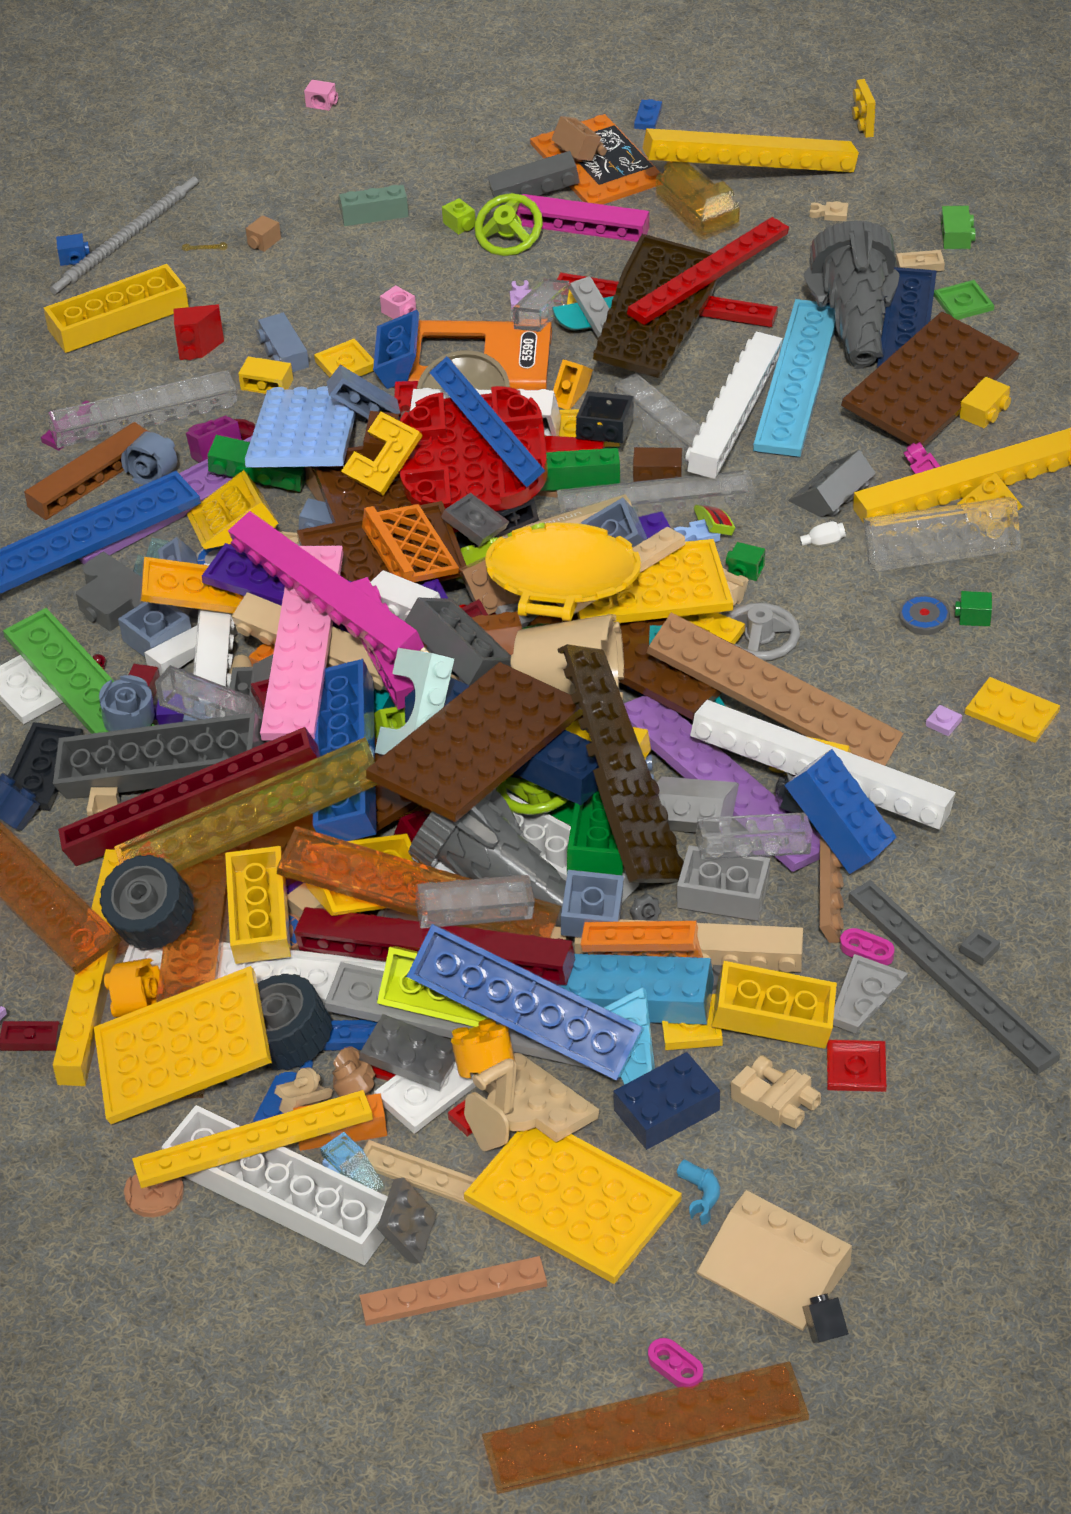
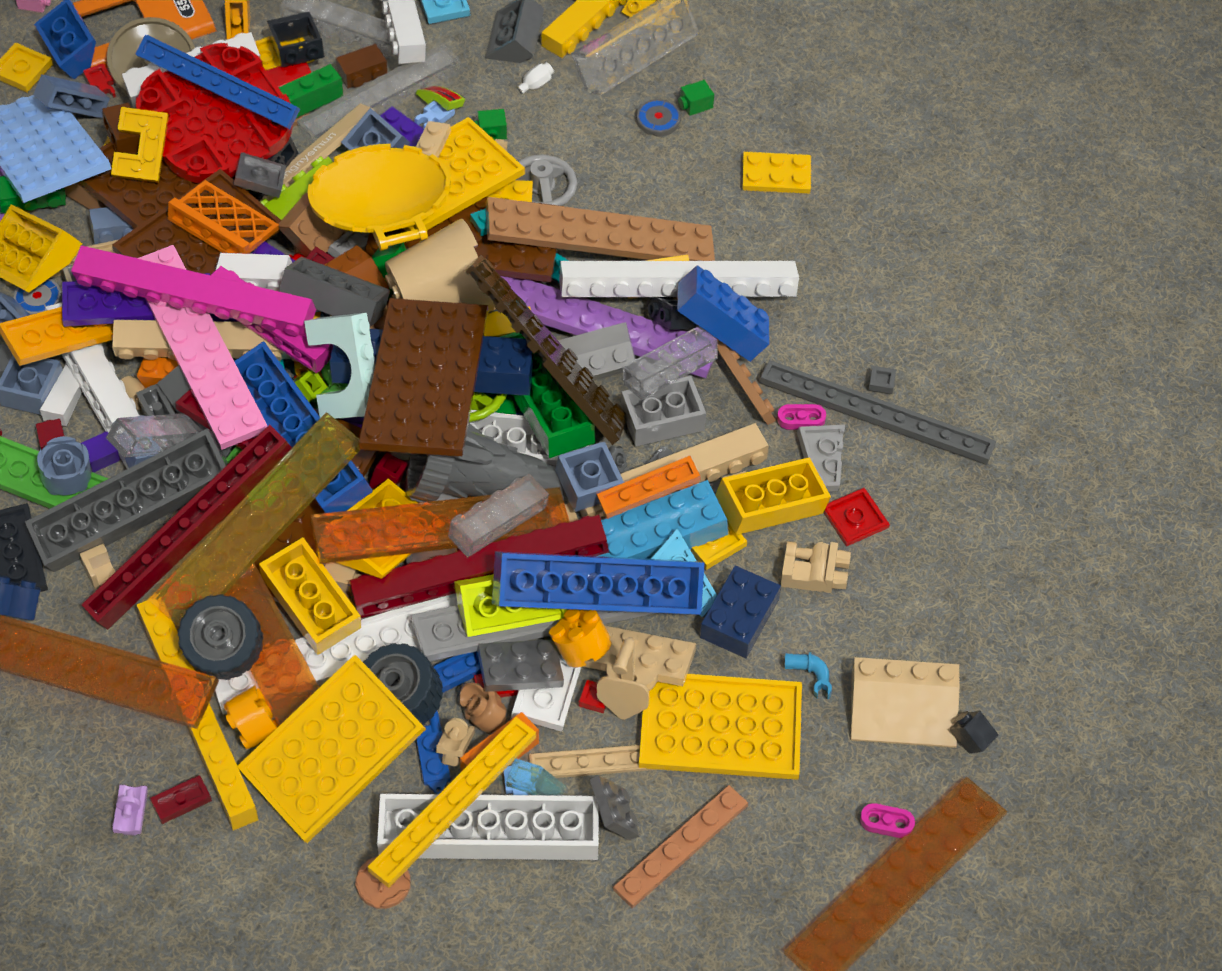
camera: 35 degrees left, 10 degrees up
(944, 720) = (732, 202): lavender plate -> none

